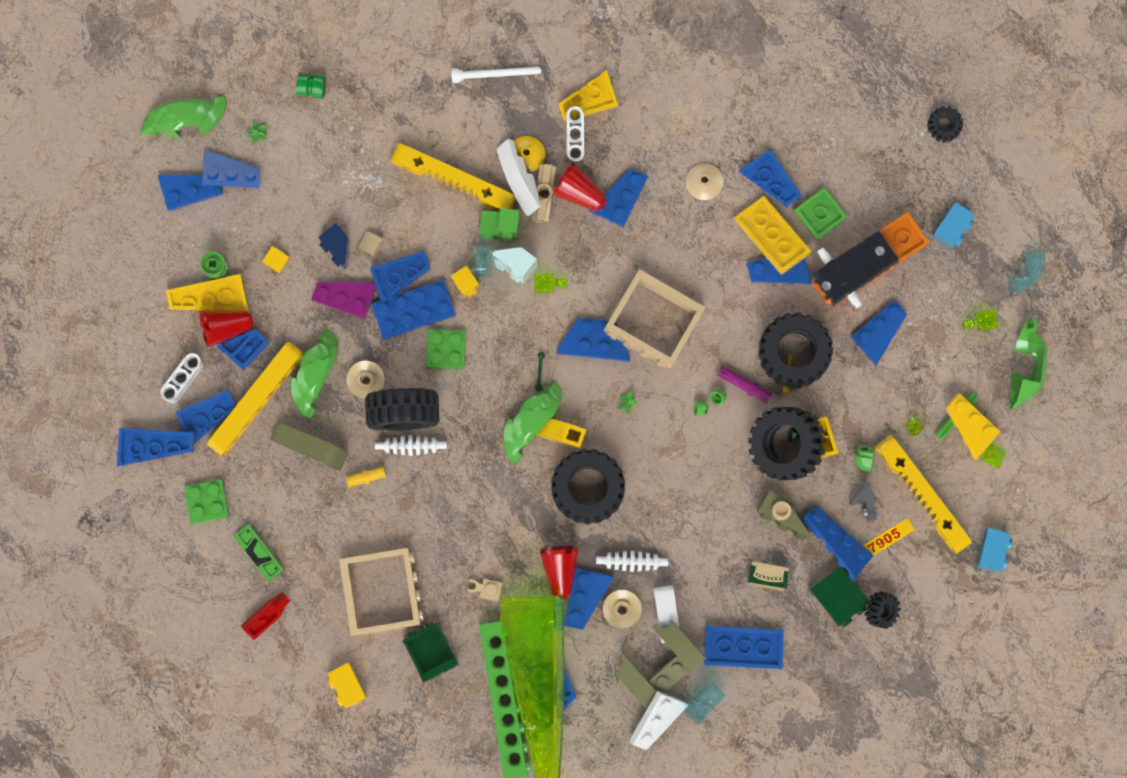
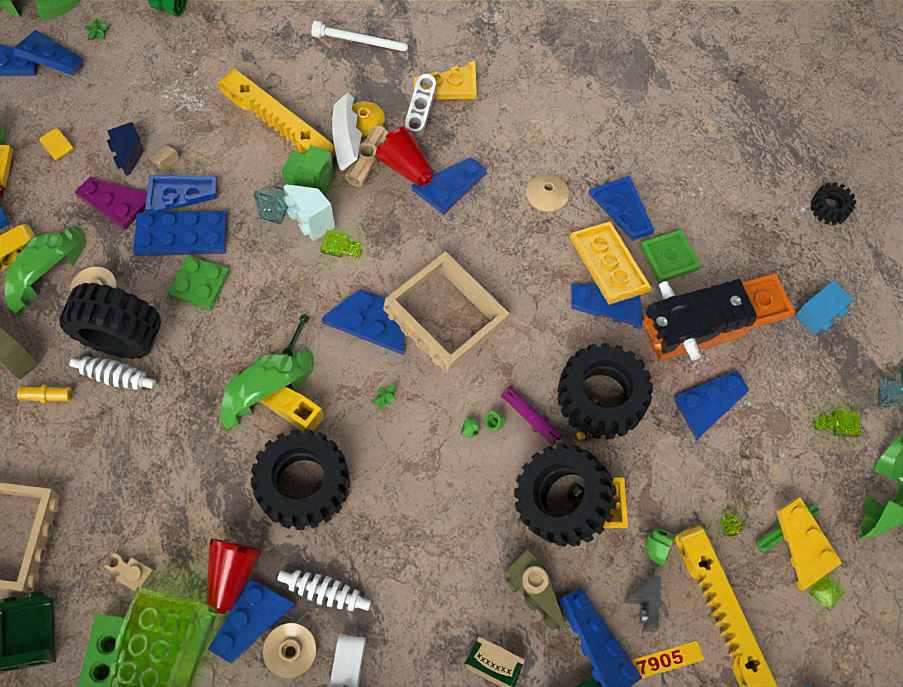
camera: 10 degrees right, 15 degrees down
(465, 282) = (248, 218): yellow brick -> none

